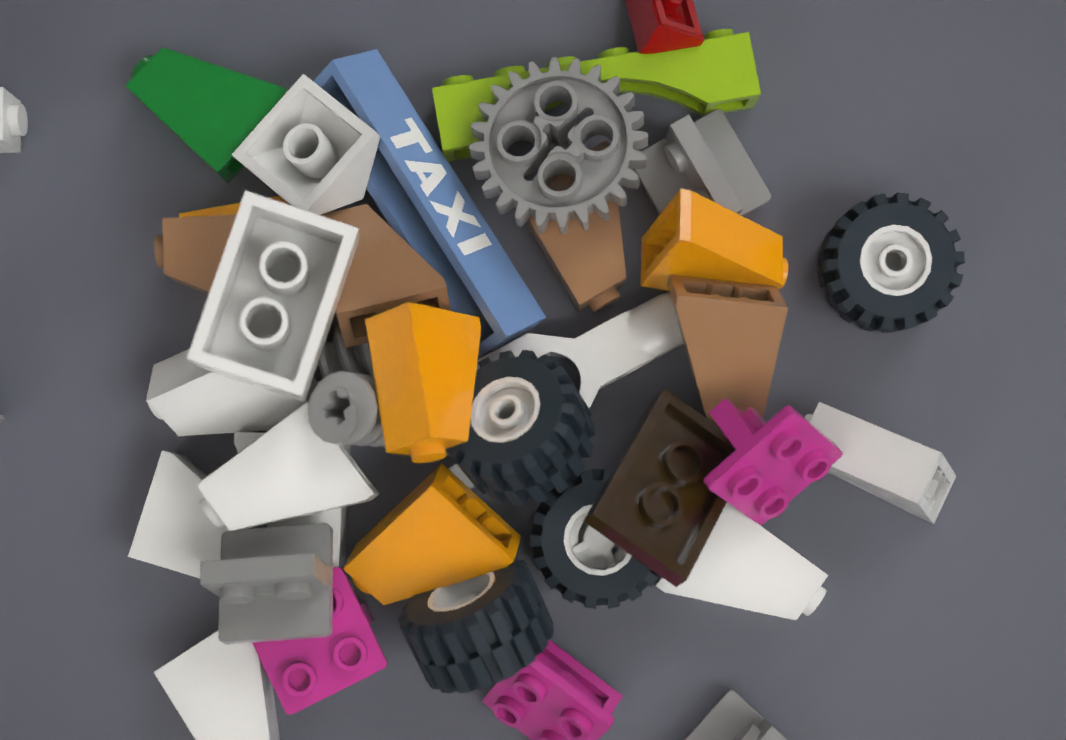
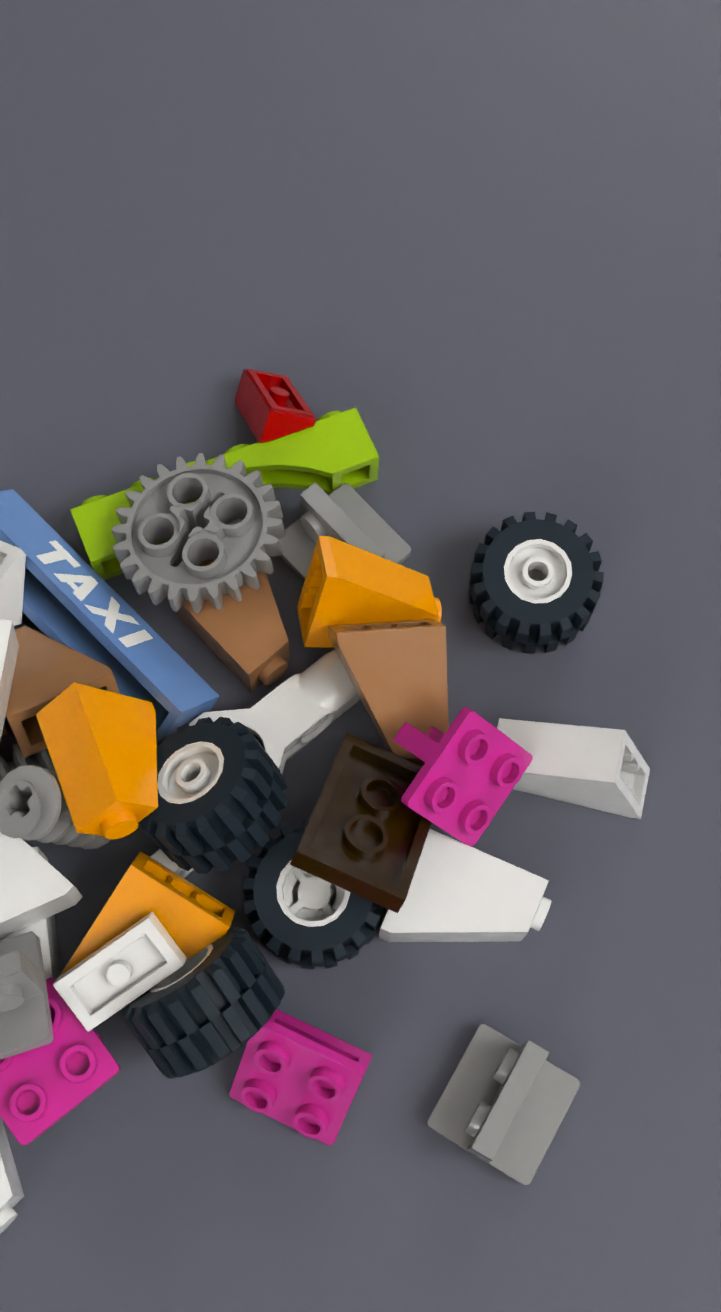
camera: 15 degrees left, 15 degrees down
(403, 580) = (120, 971): none -> white plate

